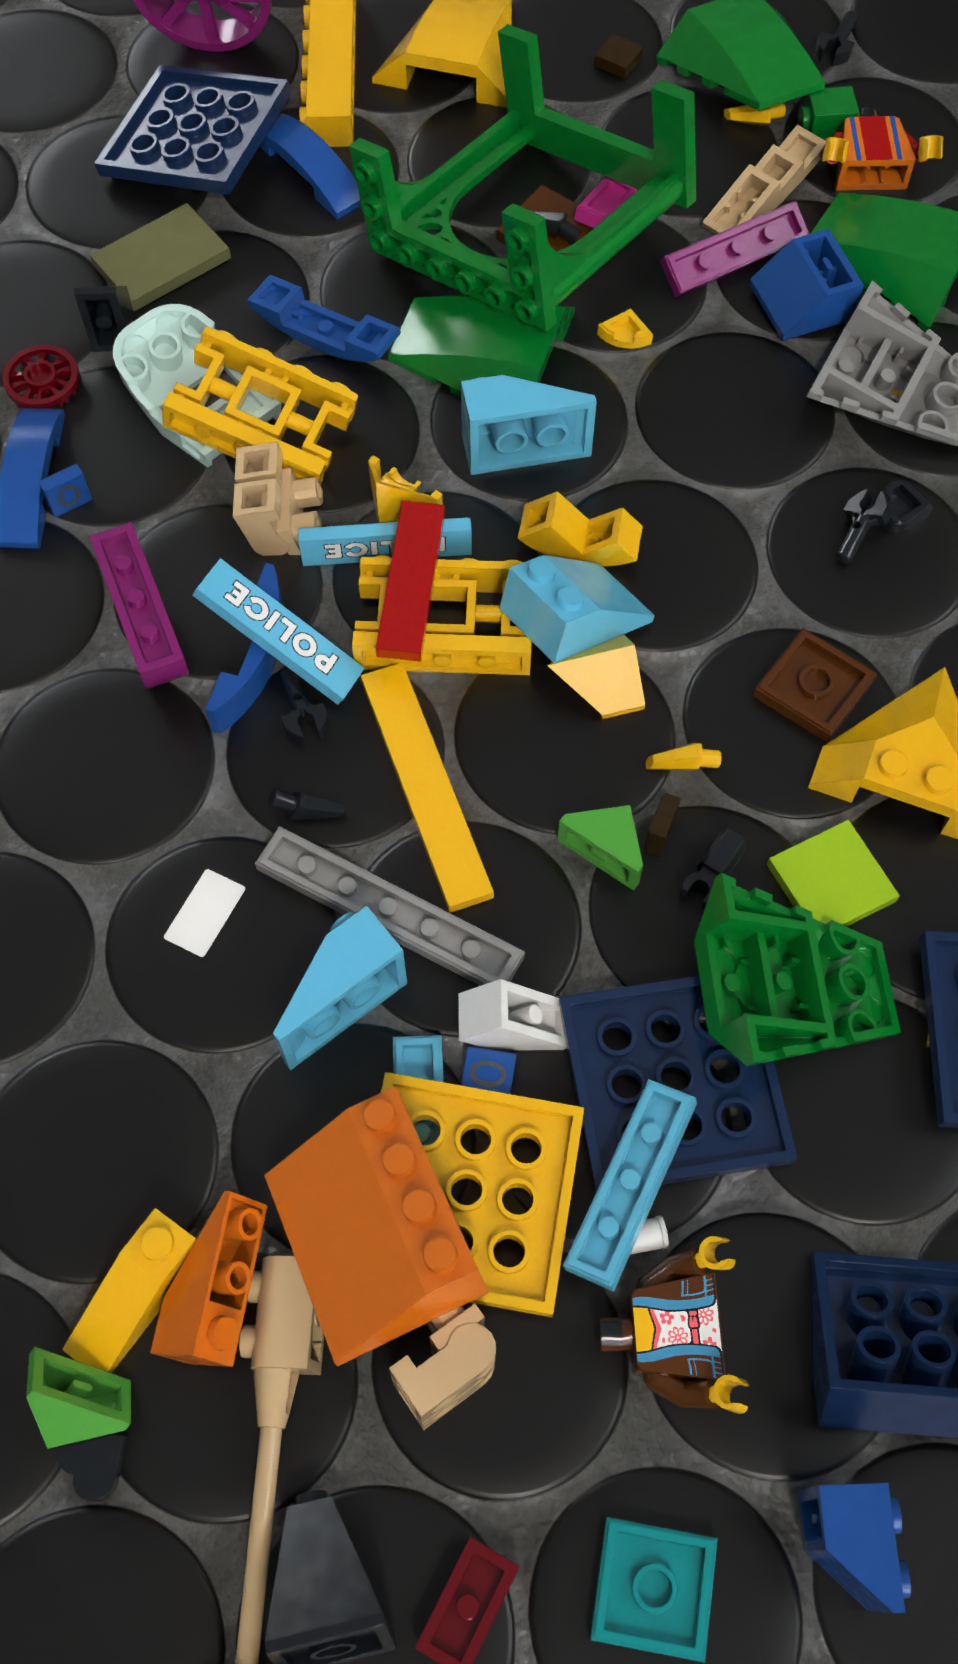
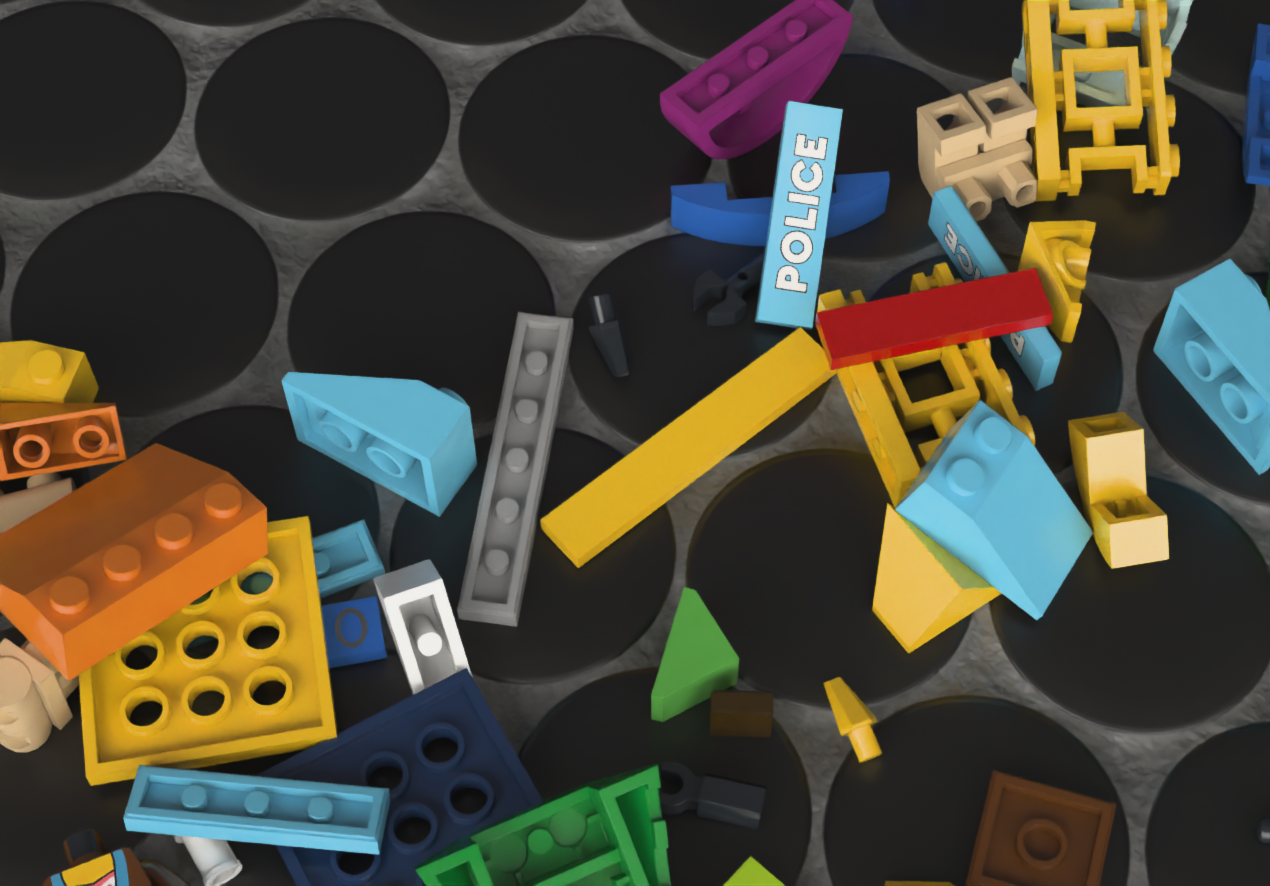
camera: 70 degrees right, 5 degrees down
(204, 913) = (448, 293): white sticker -> none

